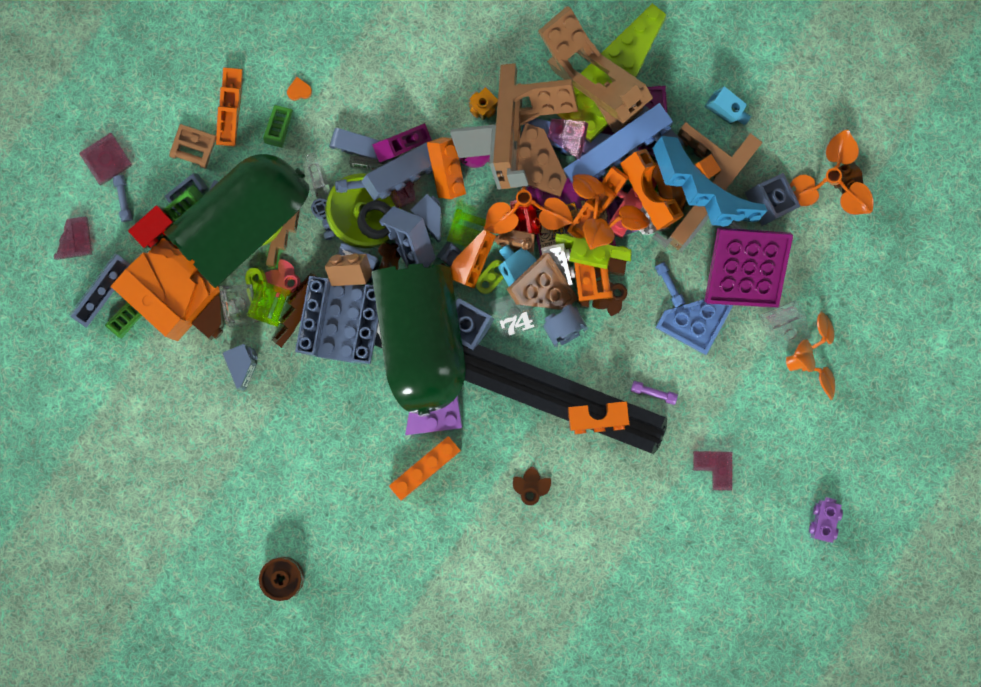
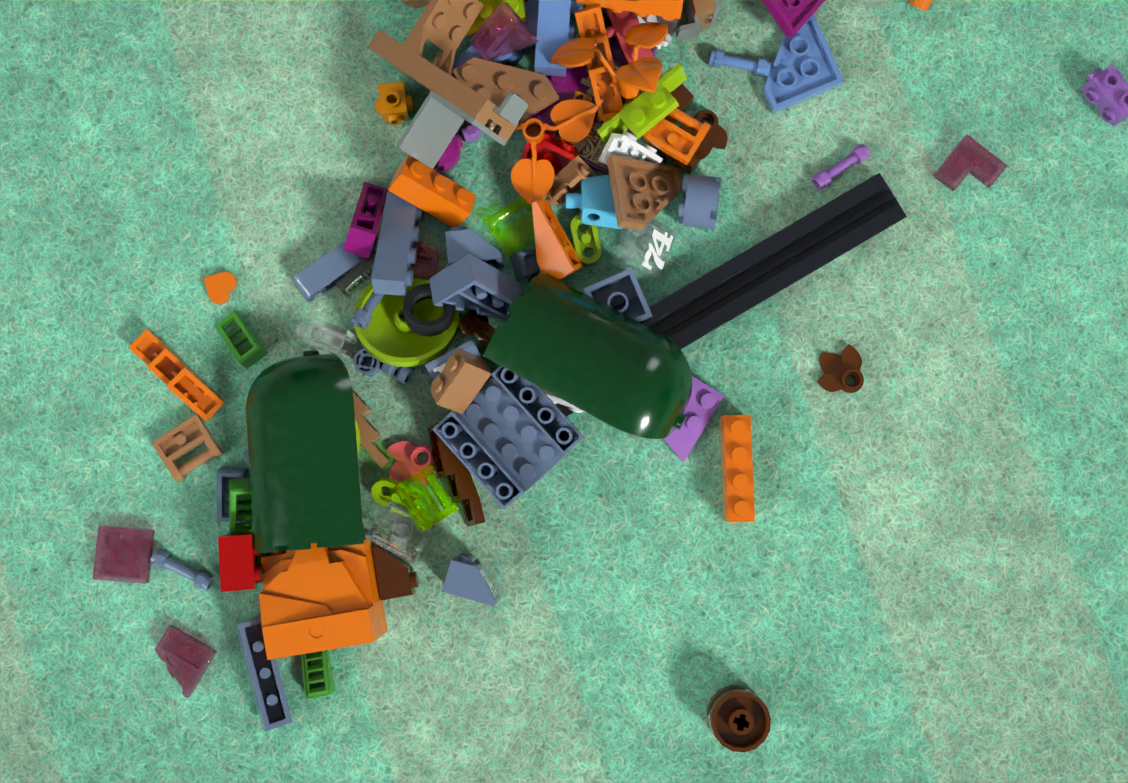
camera: 55 degrees left, 0 degrees up
(615, 417) = (841, 221): orange arch -> none

